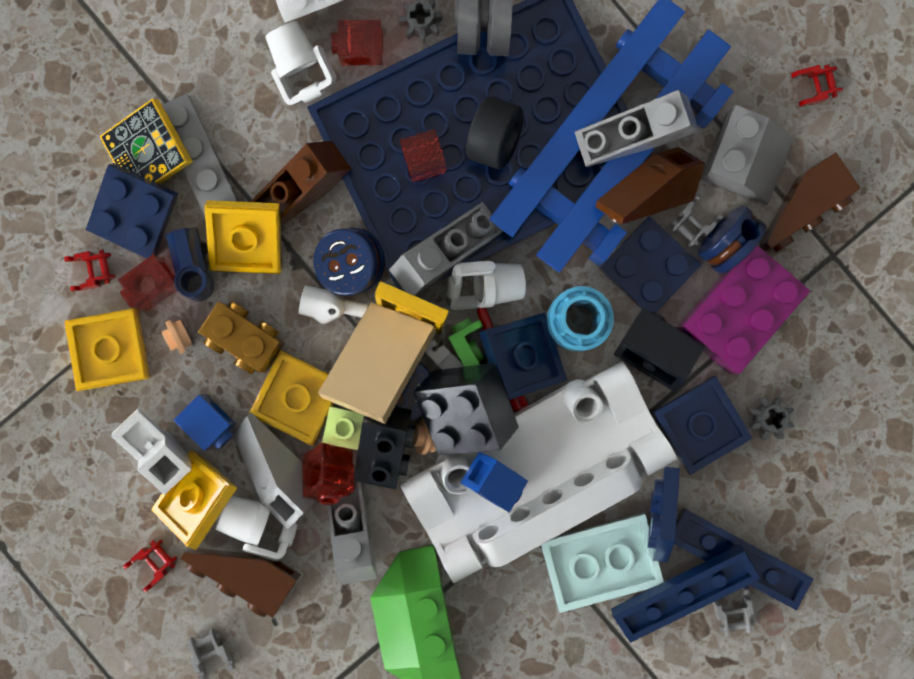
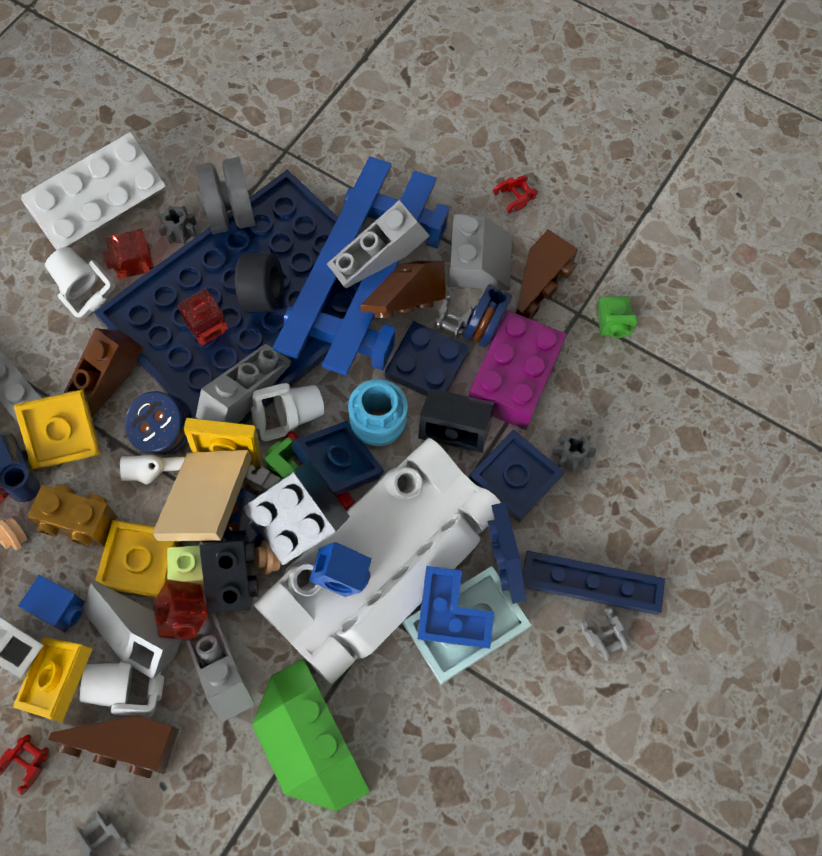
camera: 15 degrees left, 20 degrees down
(581, 557) = (443, 619): none -> blue plate
(685, 593) = (552, 626): dark blue plate -> none
(873, 274) = (616, 316): none -> bright green bracket

